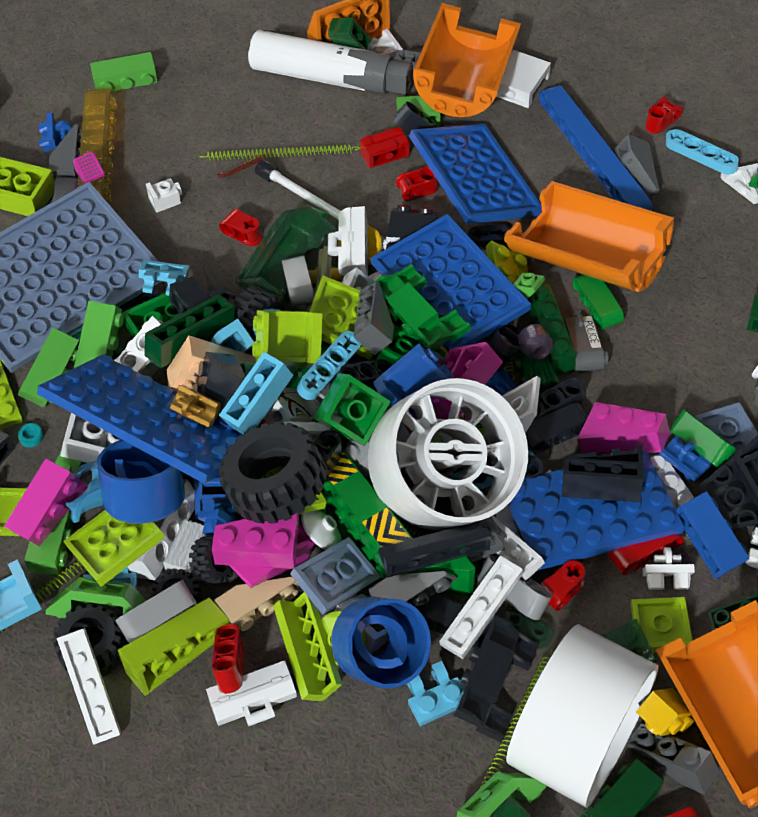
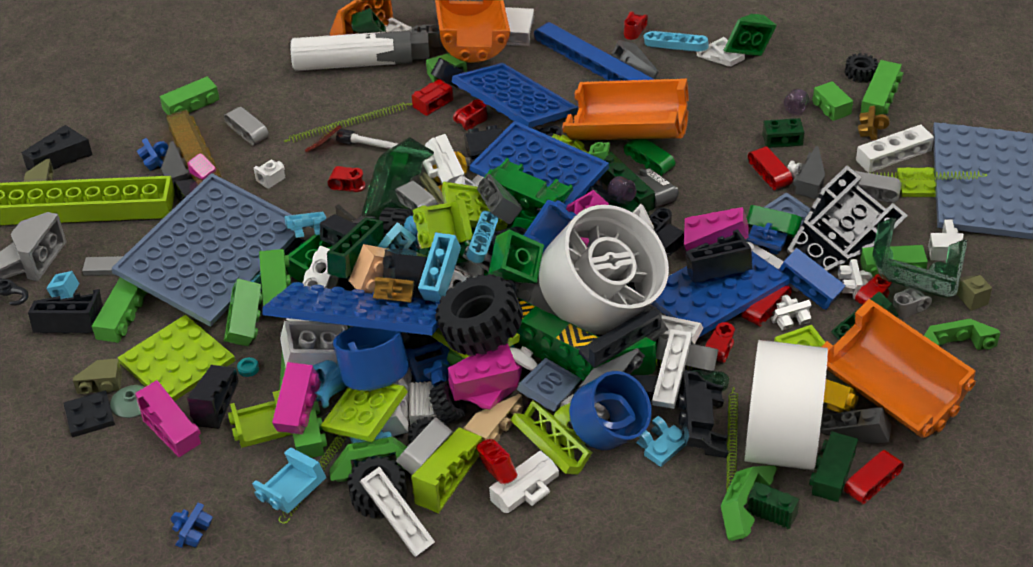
camera: 20 degrees left, 10 degrees down
(167, 125) = (246, 125): none -> light grey beam
(736, 361) = (770, 167): none -> red beam

